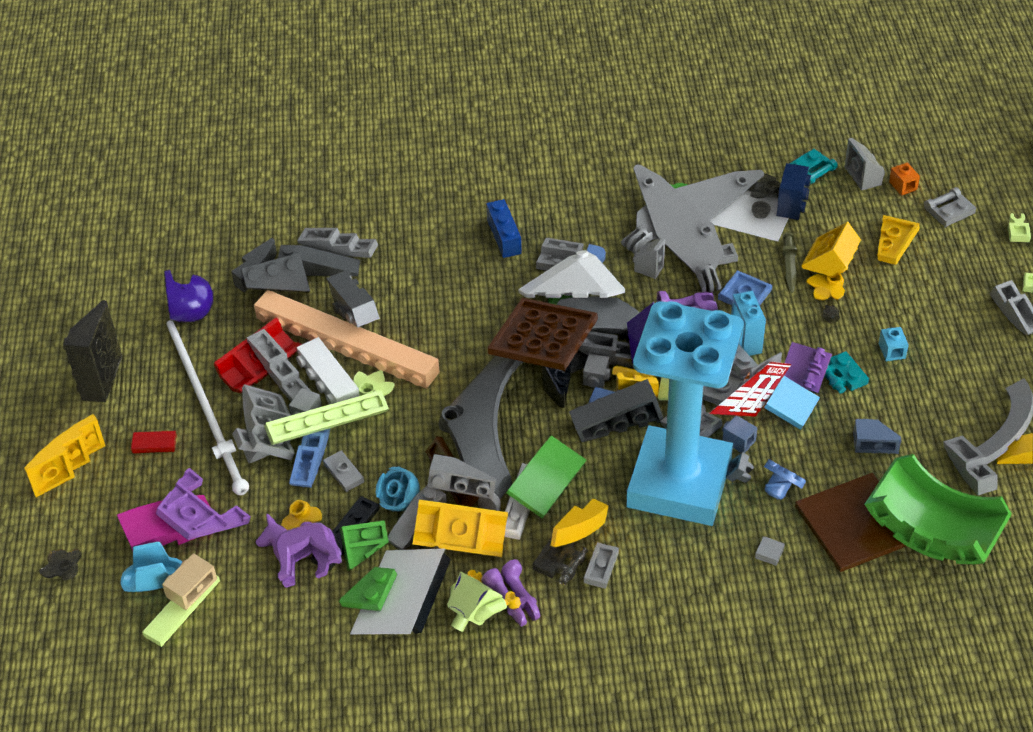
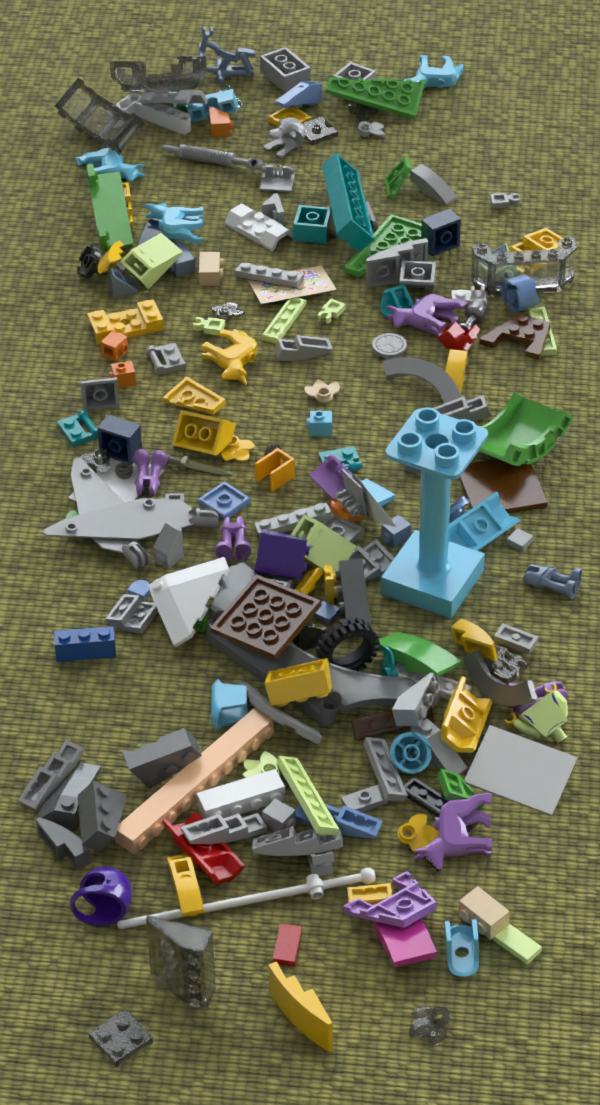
camera: 80 degrees left, 5 degrees down
(43, 348) = (120, 1038): none -> clear smoke plate
(202, 350) = (185, 885): none -> yellow slope
(215, 491) = (371, 893): none -> yellow plate
(366, 480) = (384, 770): none -> light grey plate
(371, 590) = (514, 788): bright green wing -> none
(434, 373) = (278, 715): none -> light grey tile
(442, 340) = (227, 704): none -> medium azure piece
(466, 378) = (298, 682): none -> yellow slope
(509, 554) = (493, 688): none -> dark grey tile
(521, 454) = (387, 666): none -> teal plate
(528, 410) = (344, 631): none -> black tyre
(711, 580) = (549, 577): none -> sand blue piece
(754, 321) = (272, 482): medium azure window -> none
(769, 505) = (481, 524): none -> medium azure piece
(772, 226) = (142, 459): none -> medium lavender piece
(800, 319) = (273, 464): none -> light orange piece
(947, 163) = (114, 345): none -> orange brick
(954, 339) = (321, 391): none -> tan plate
(977, 257) = (234, 357): none -> yellow animal
(990, 165) = (140, 321): none -> yellow piece

